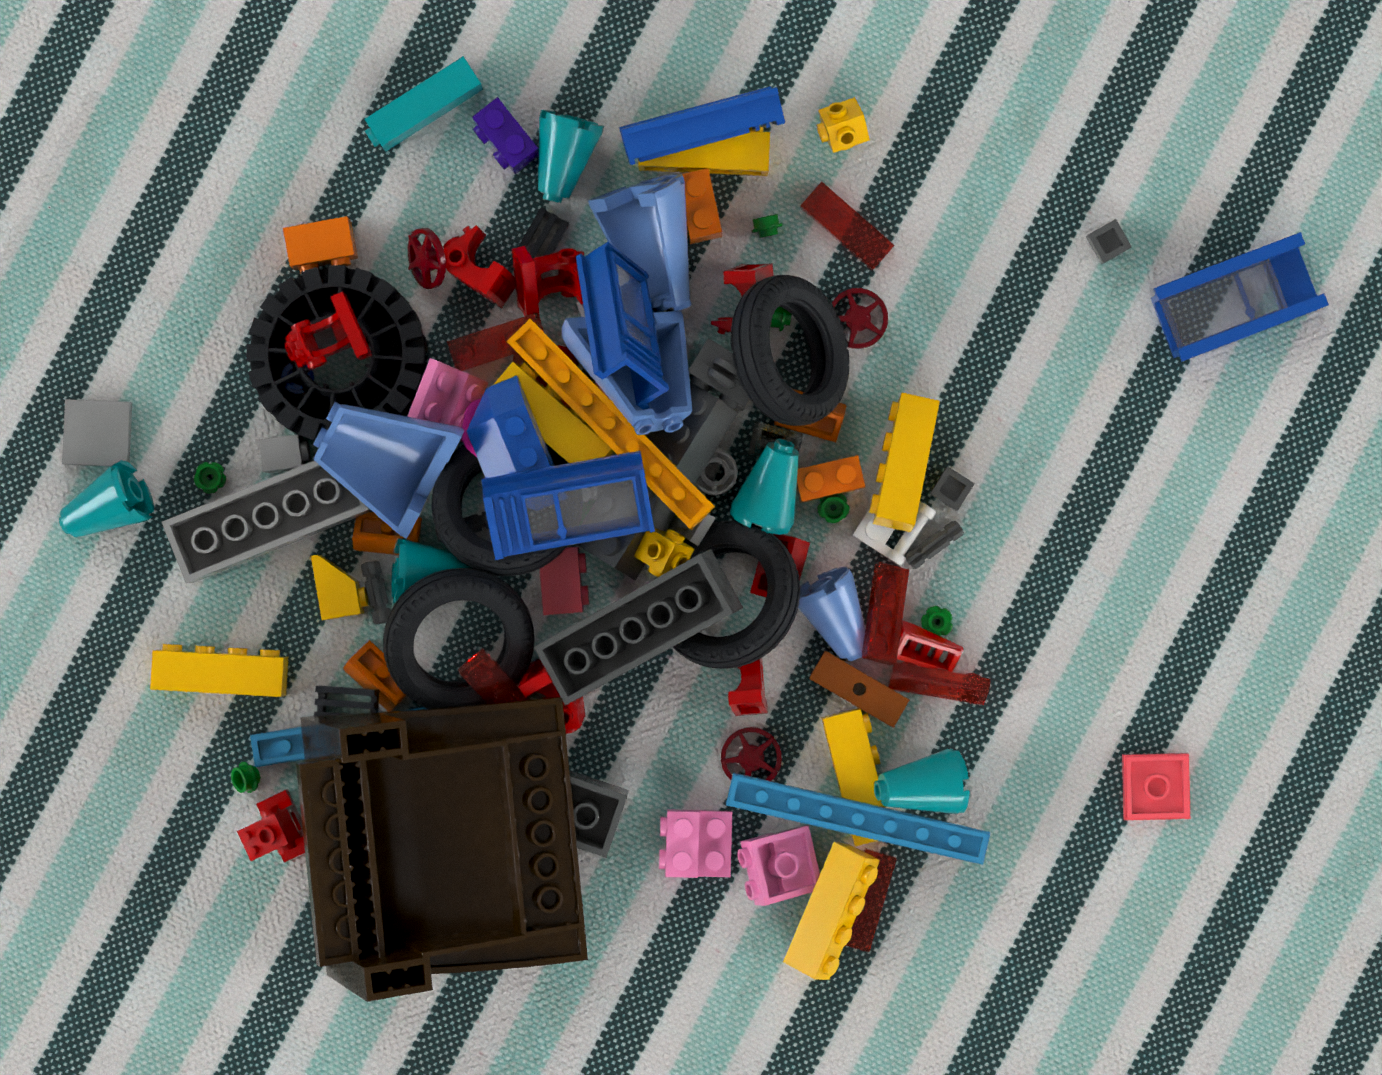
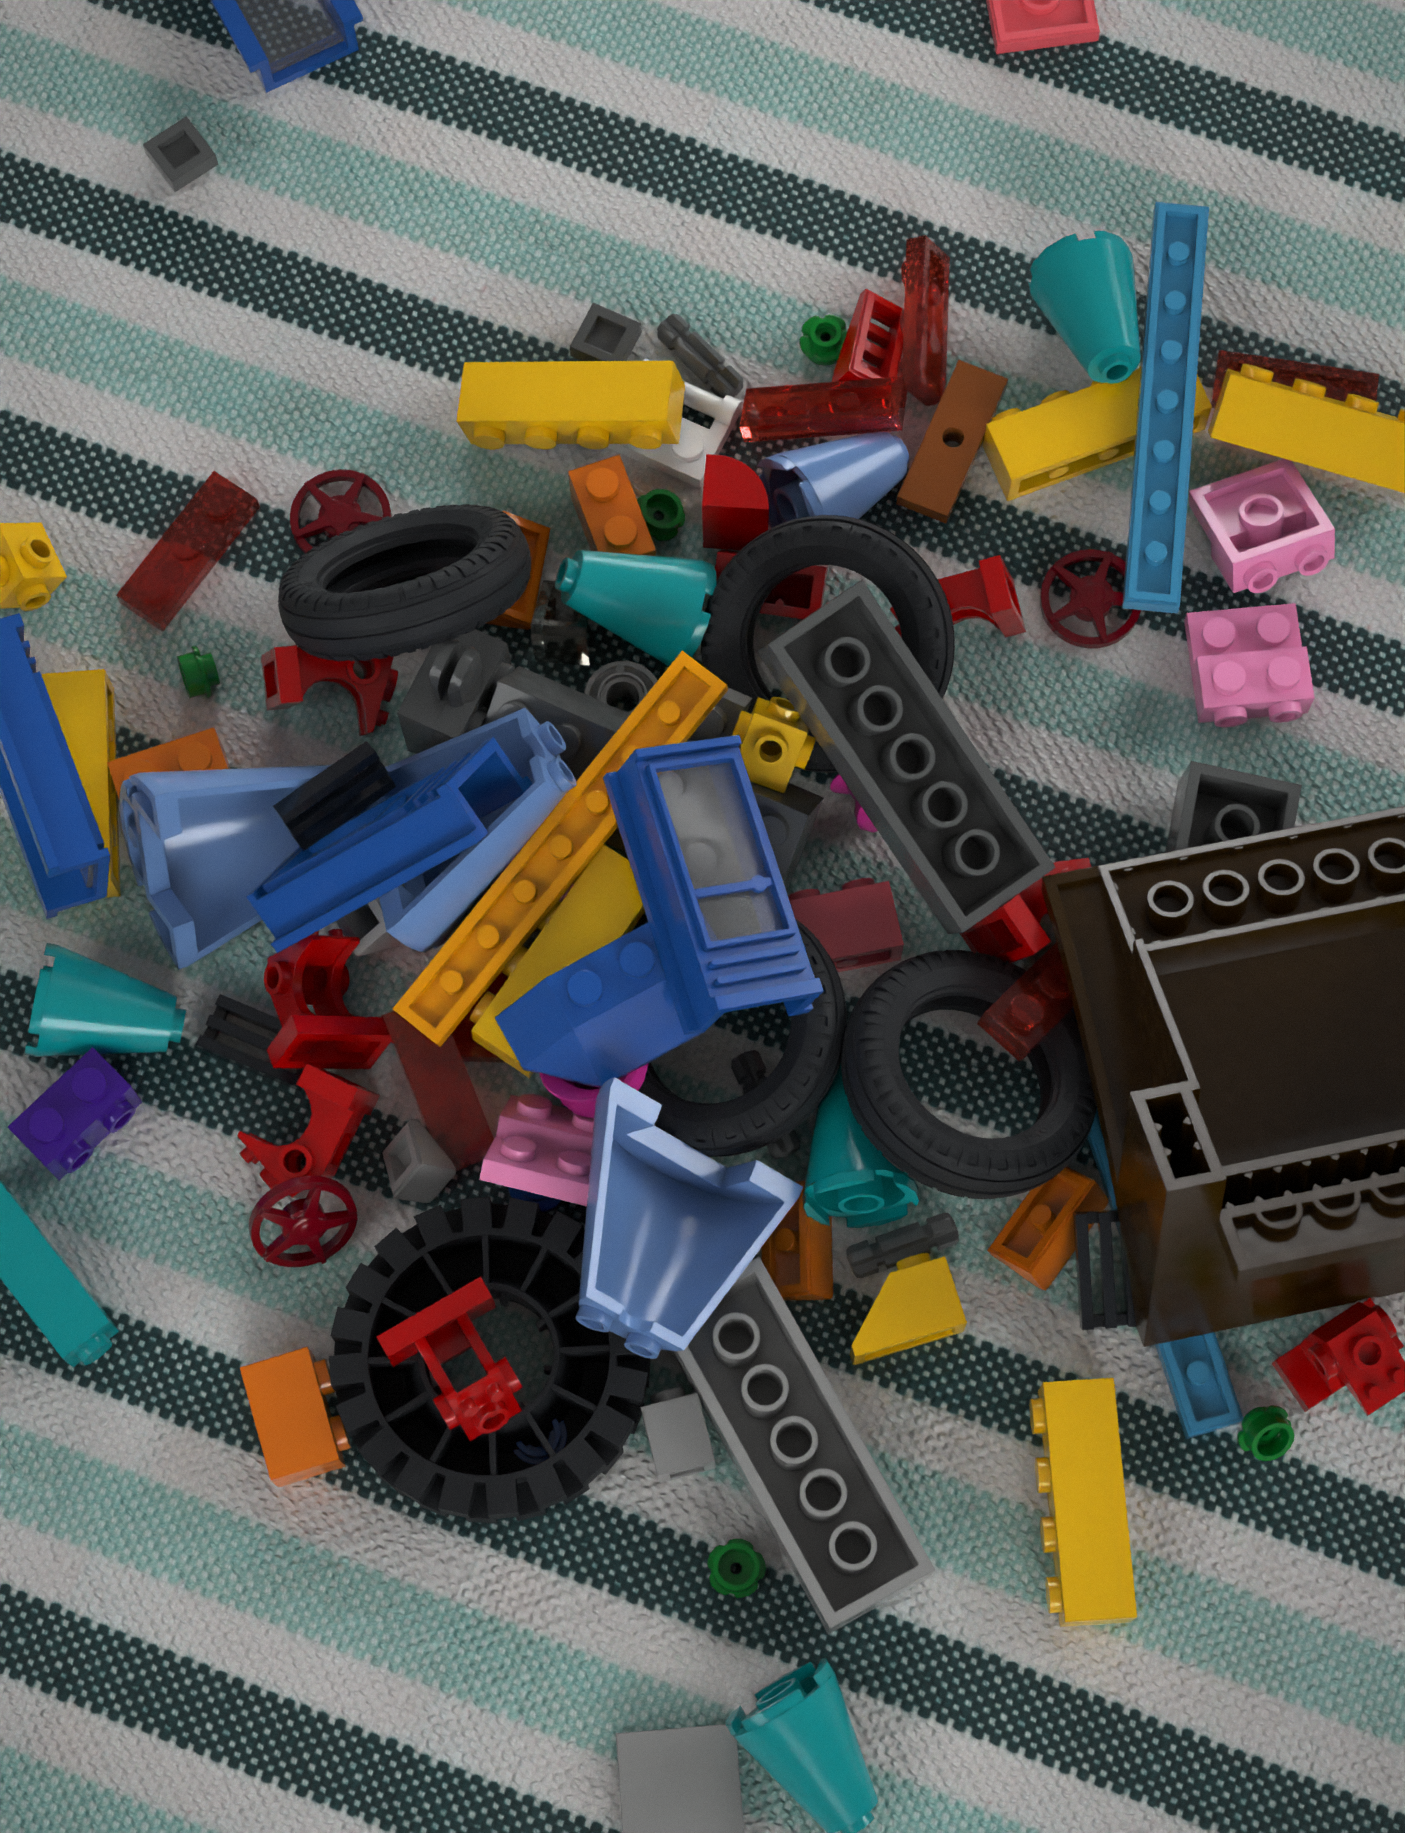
camera: 95 degrees left, 15 degrees down
(455, 324) = (417, 1164): none -> light grey slope
(663, 297) = (336, 802): none -> black tile
(826, 550) = (732, 504): none -> red brick

